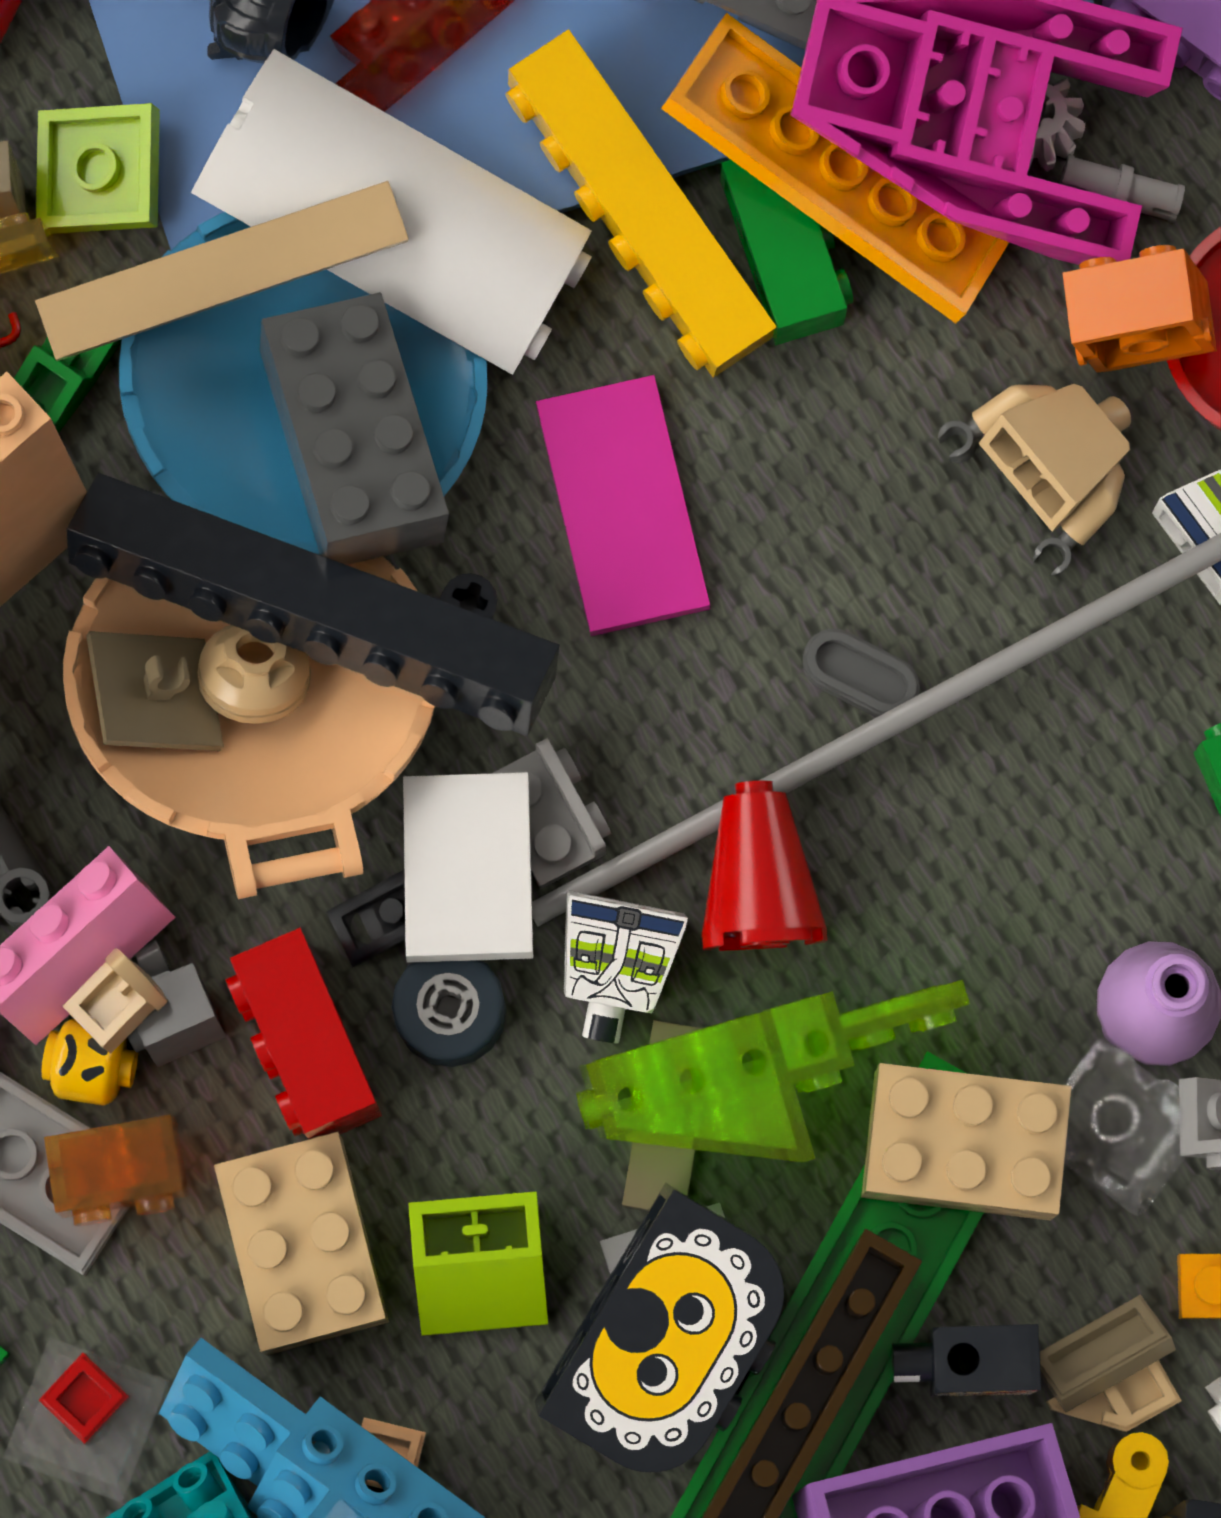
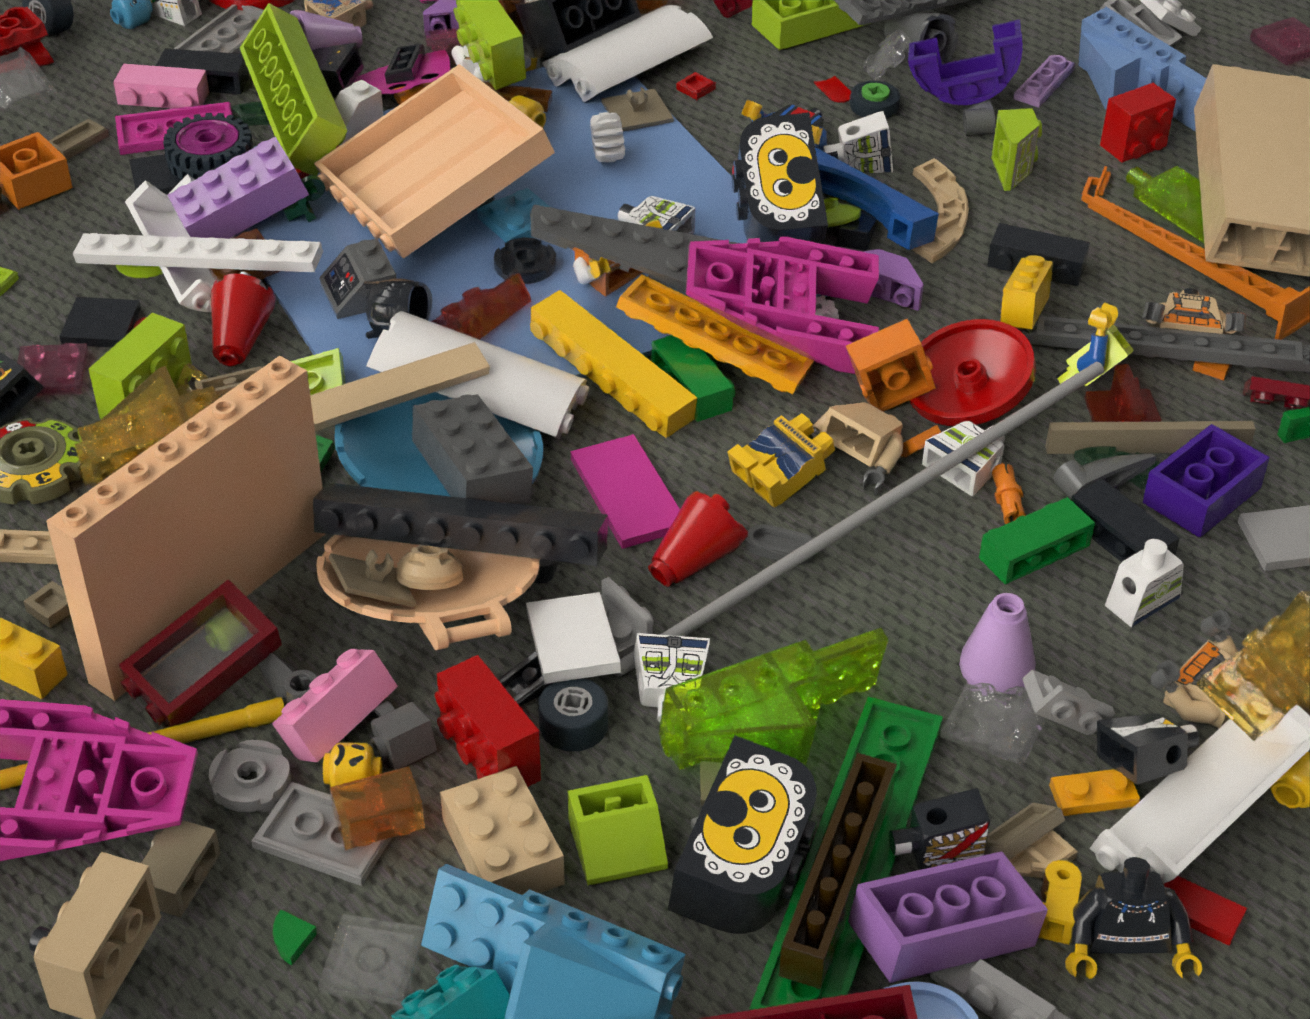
camera: 10 degrees left, 35 degrees down
(84, 1398) = (370, 939): red tile -> none
(115, 1000) = (368, 716): tan tile -> none
(710, 667) = (696, 538): none -> red cone
(760, 876) = (747, 620): red cone -> none
(898, 491) = (781, 458): none -> yellow hips
(966, 1141) = (906, 720): tan brick -> none
(1156, 474) = (918, 441): none -> orange tile

